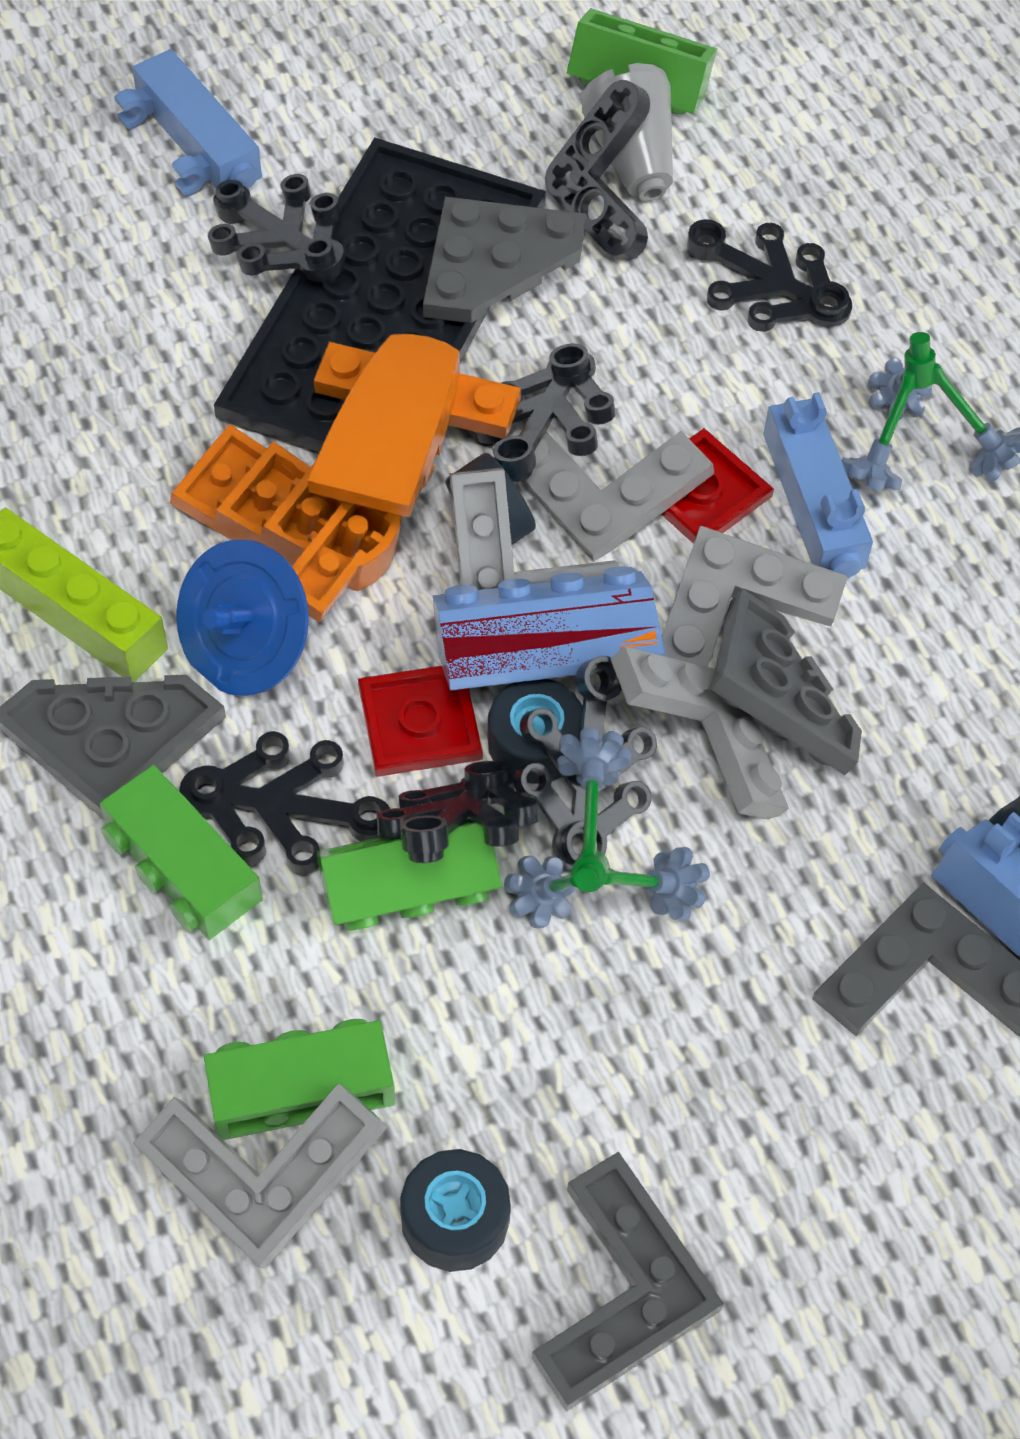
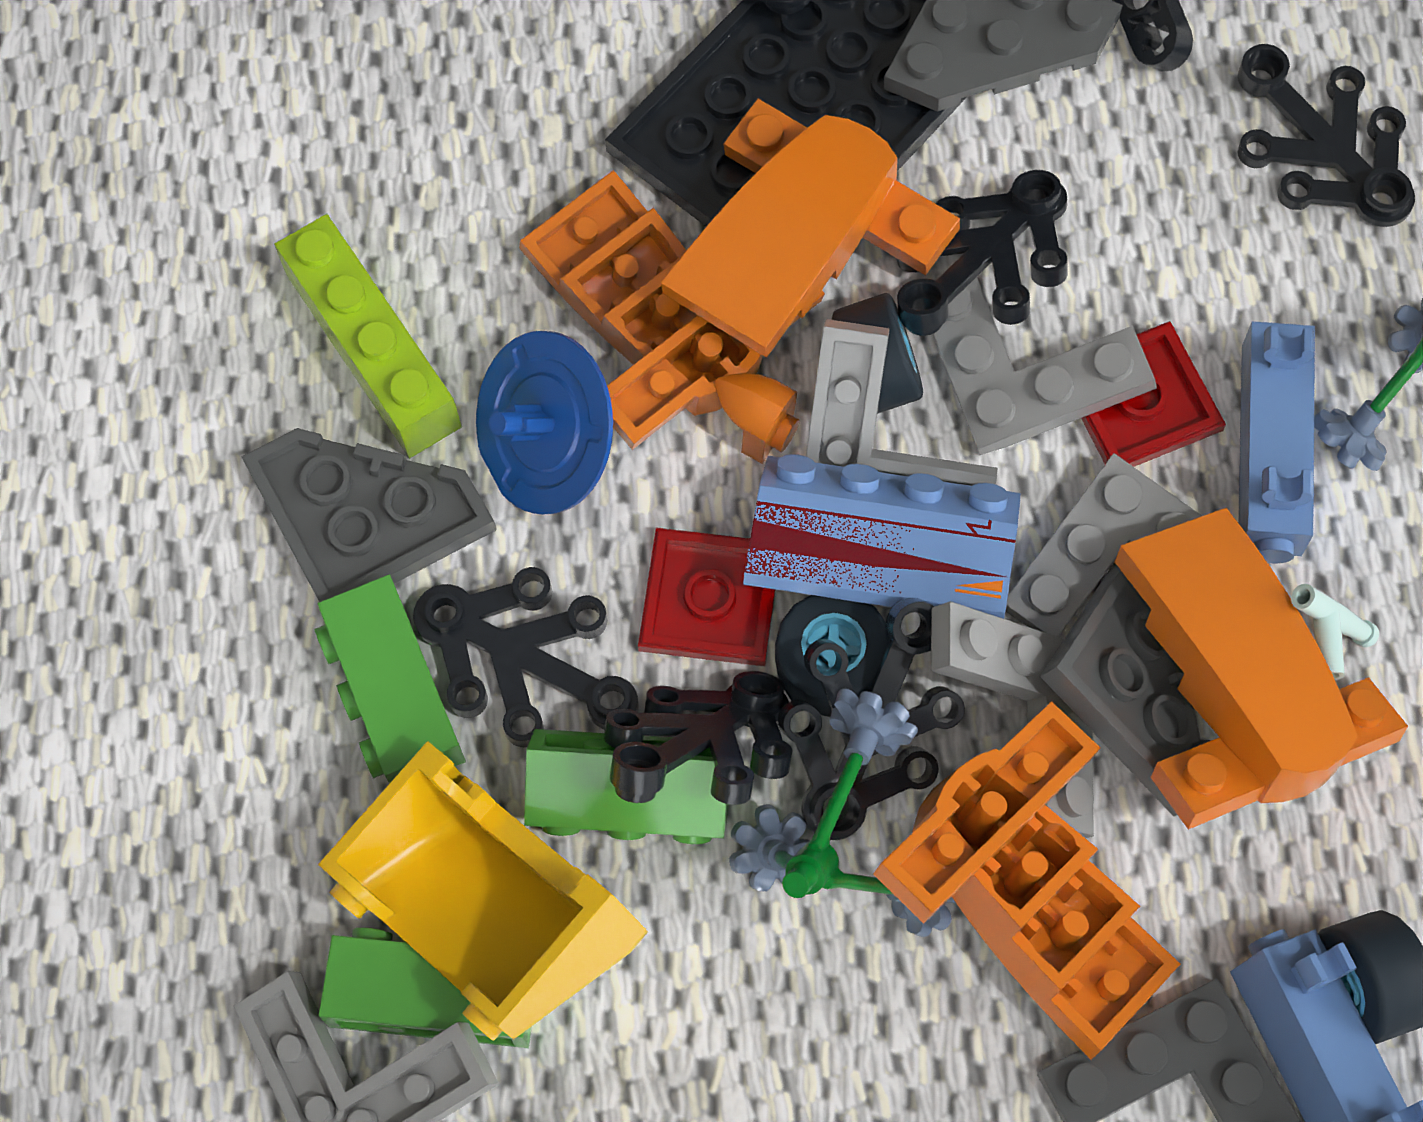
camera: 25 degrees right, 10 degrees up
(321, 980) = (478, 896): none -> yellow windscreen
(416, 563) = (761, 409): none -> orange plate
(755, 848) = (1031, 883): none -> orange slope
(864, 648) = (1247, 674): none -> orange slope
(914, 601) = (1329, 622): none -> light aqua piece

